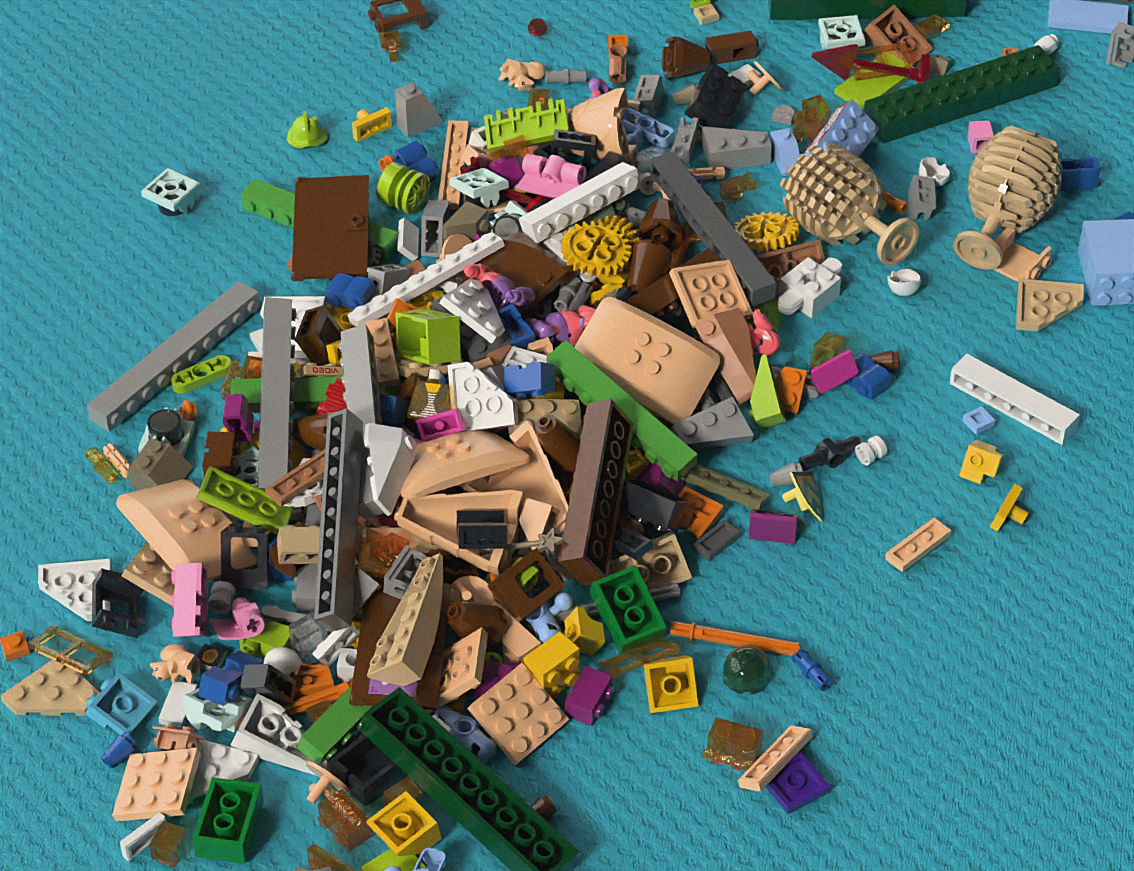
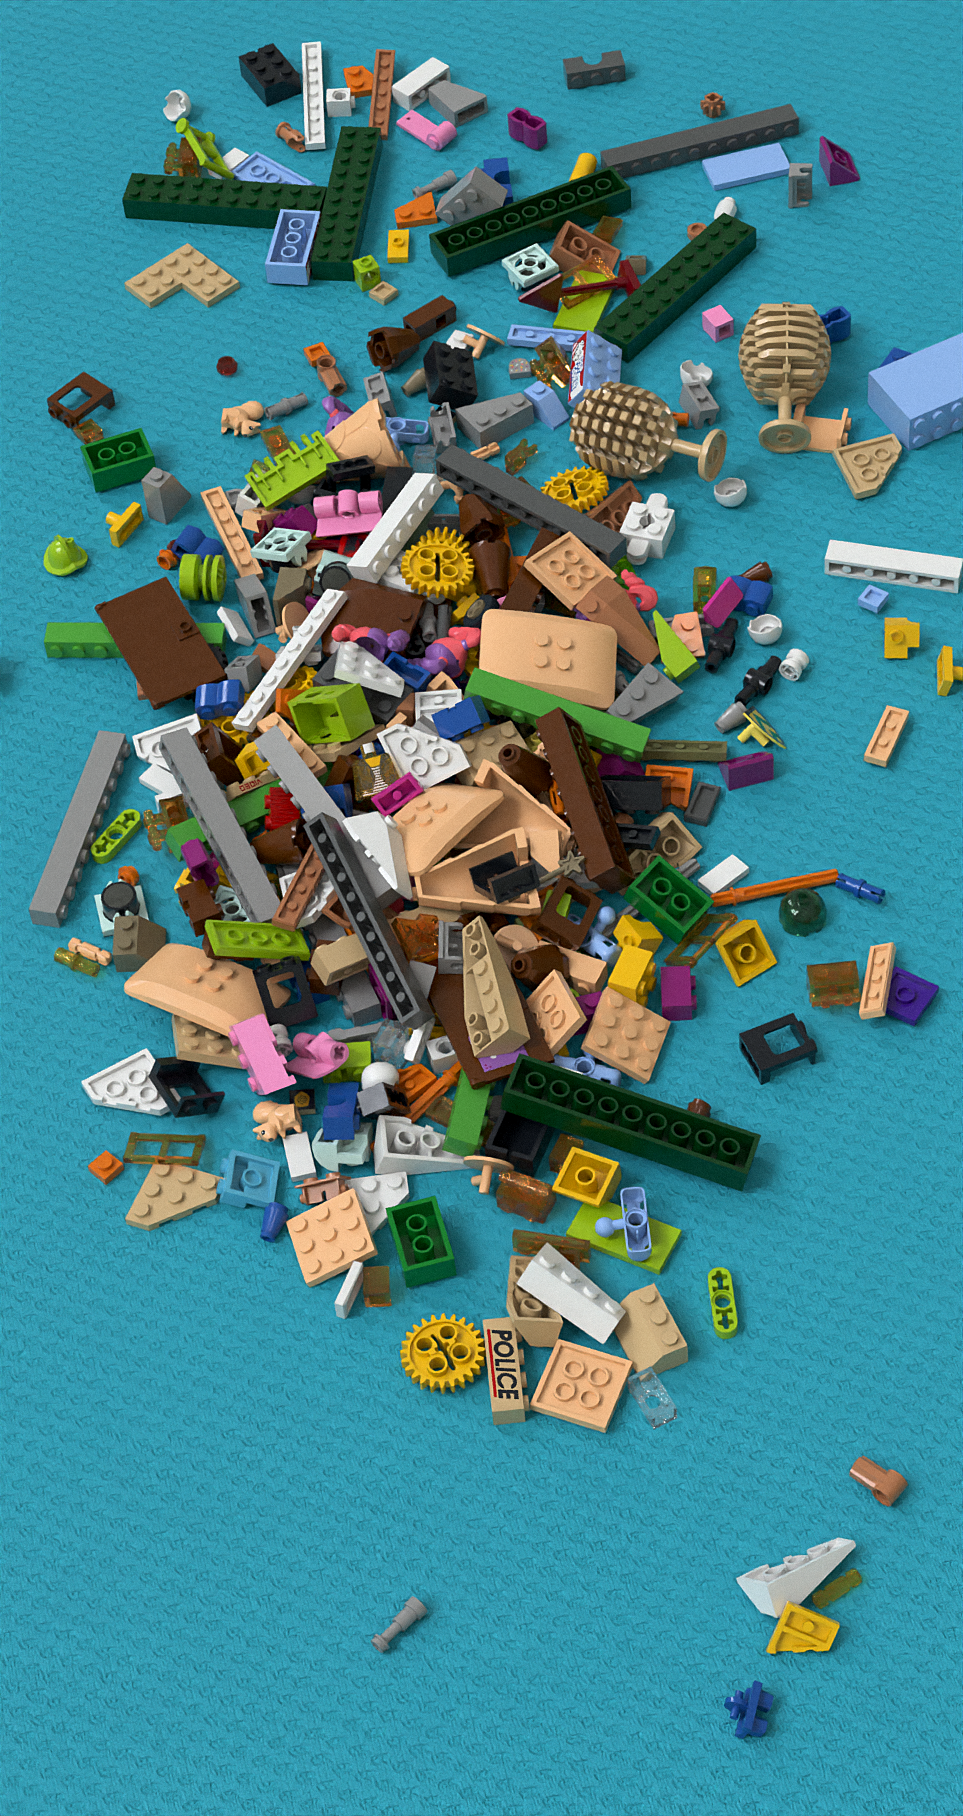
camera: 20 degrees left, 5 degrees up
(396, 67) = (118, 459): none -> green brick
(513, 147) = (292, 496): clear orange plate -> none
(629, 779) = (761, 1057): none -> black window
(696, 610) = (723, 875): none -> white tile
(806, 89) = (533, 336): none -> light blue plate
(816, 409) = (721, 645): none -> black pin
(863, 410) = (765, 629): none -> white hair

